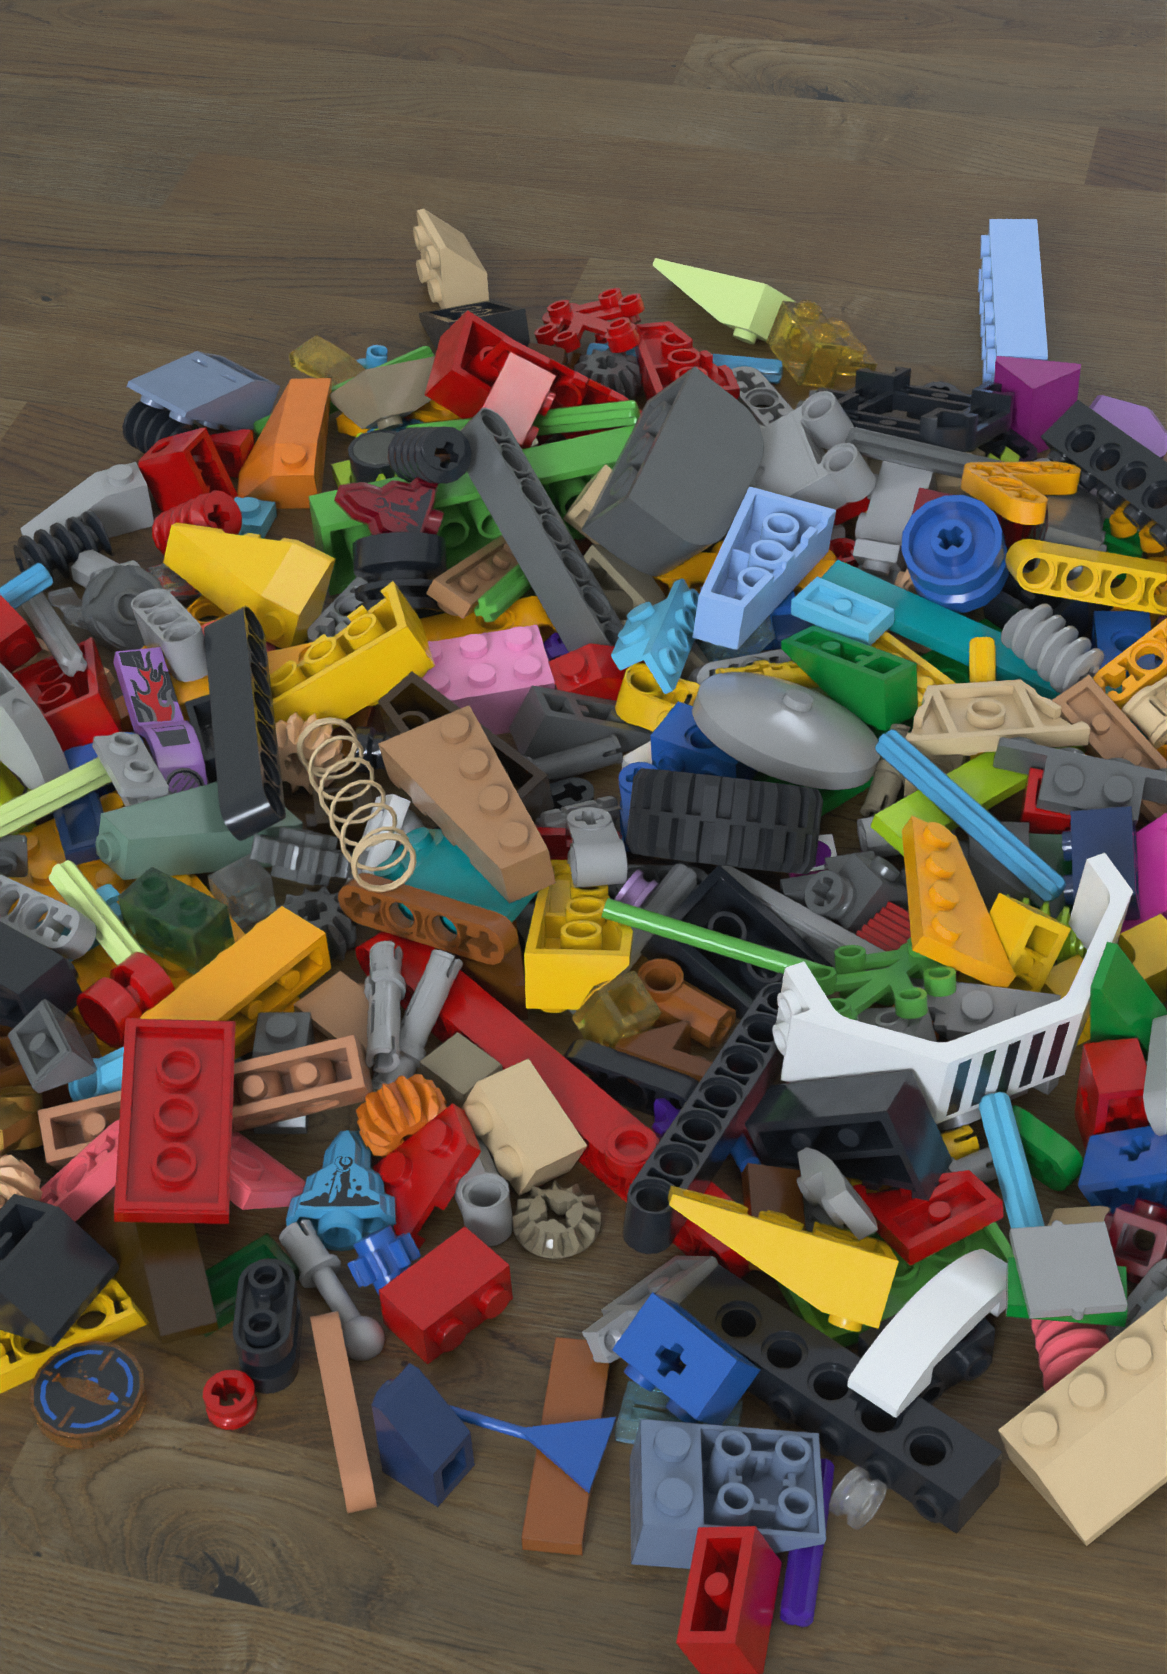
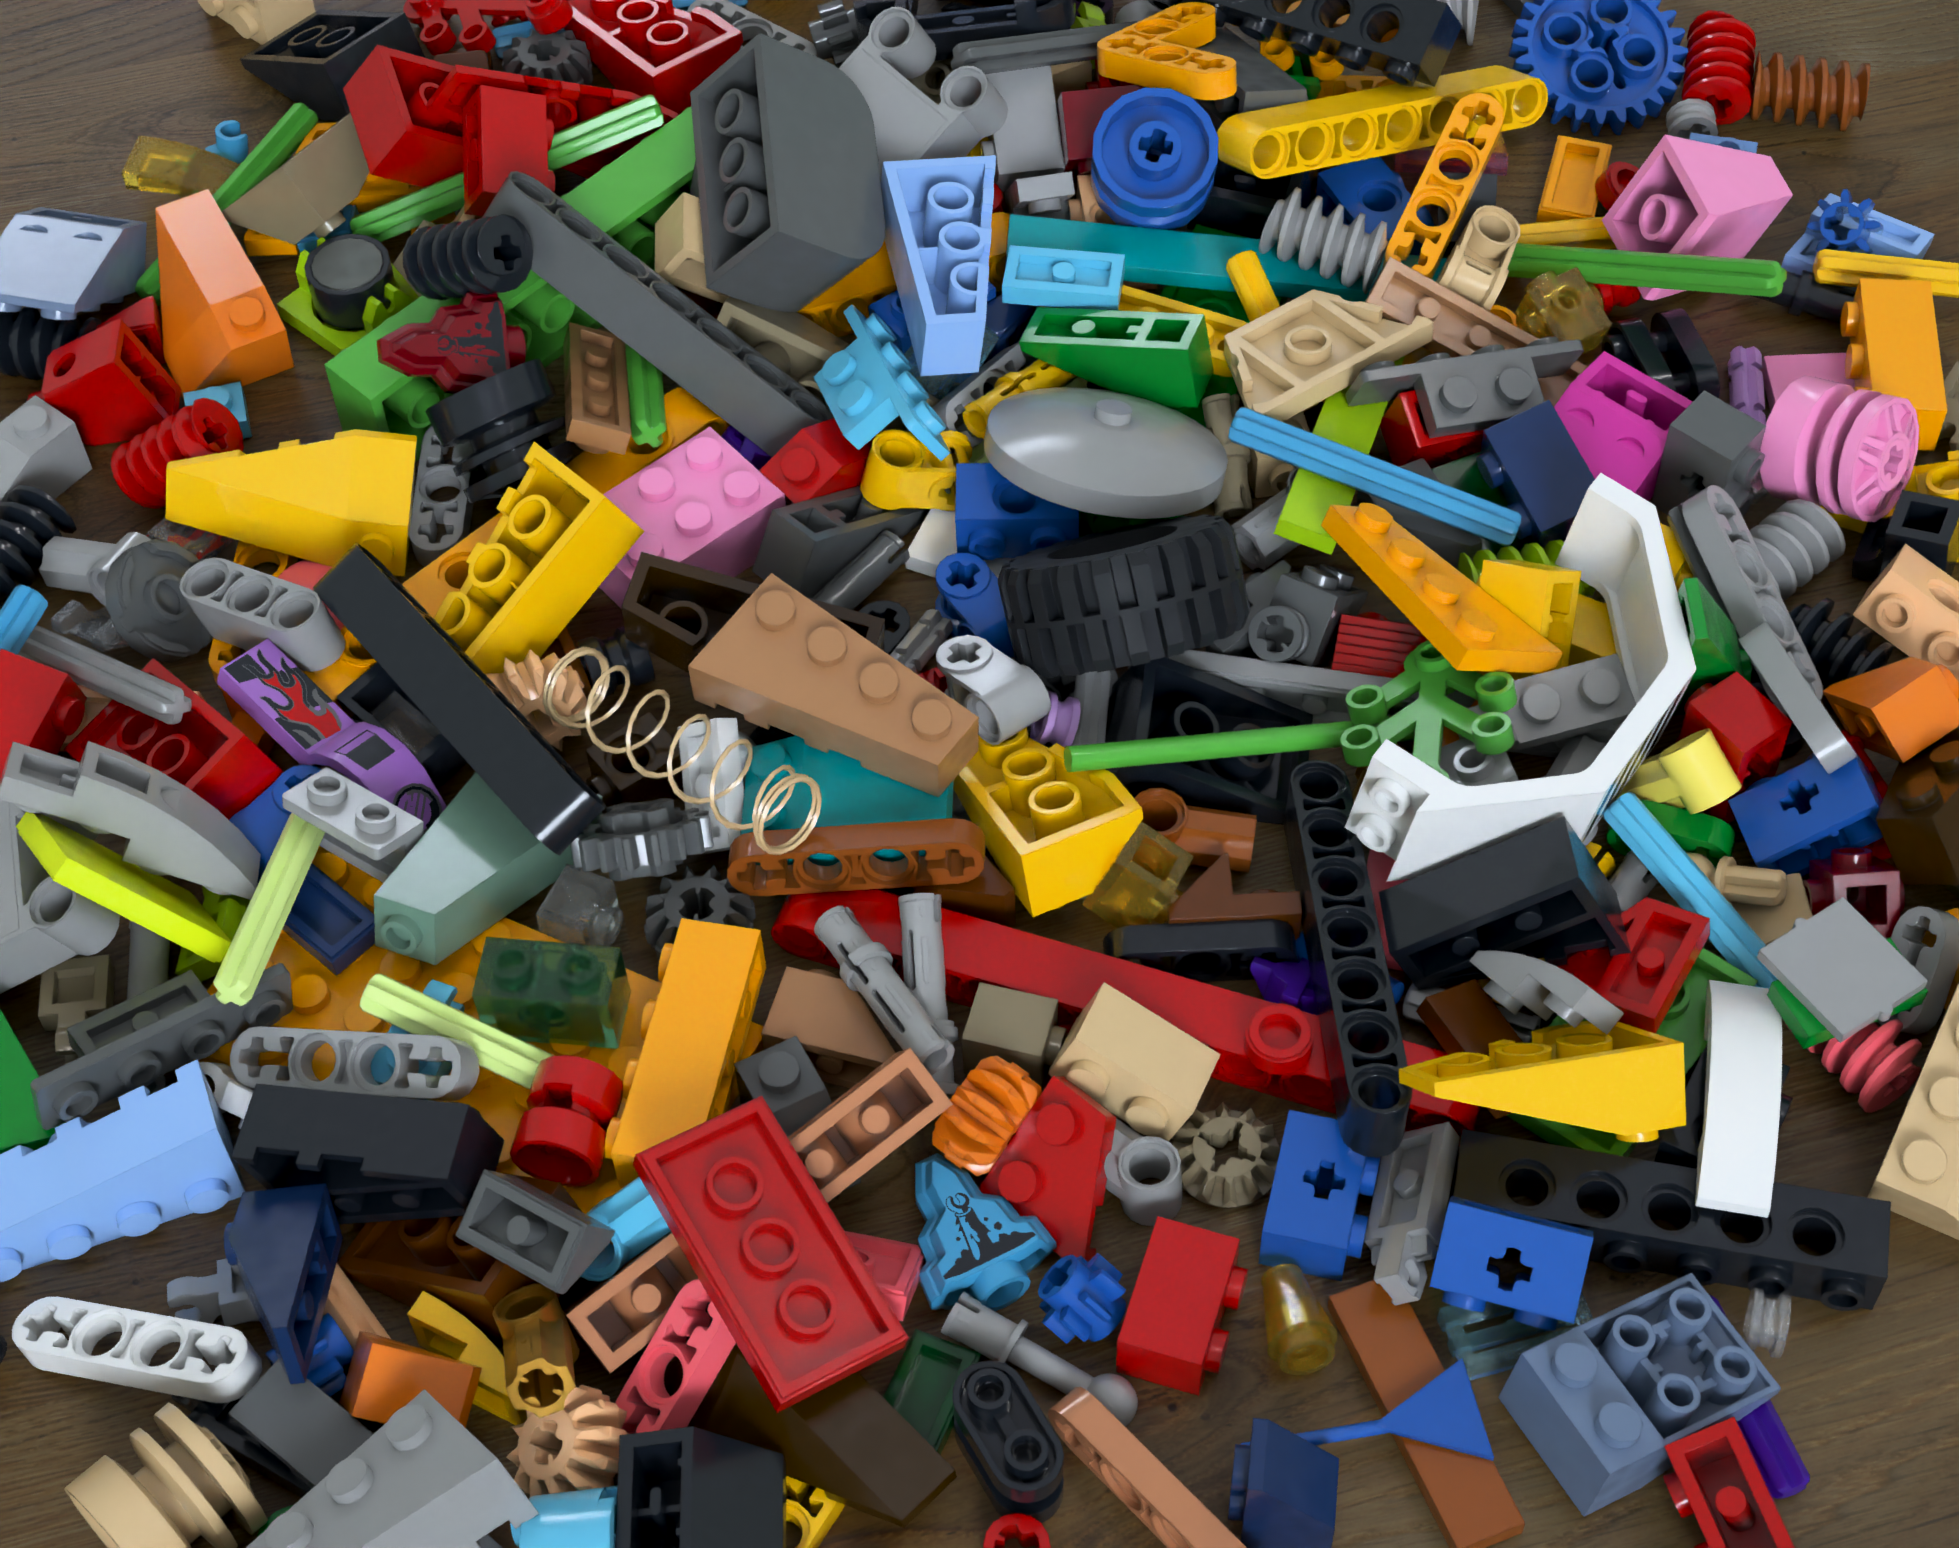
camera: 30 degrees left, 10 degrees up
(519, 1343) = (1295, 1322): none -> clear yellow cone
(588, 1269) = (1310, 1229): none -> blue brick
(1058, 1196) = (1744, 883): none -> tan axle
(1061, 1099) = (1686, 775): none -> light yellow piece

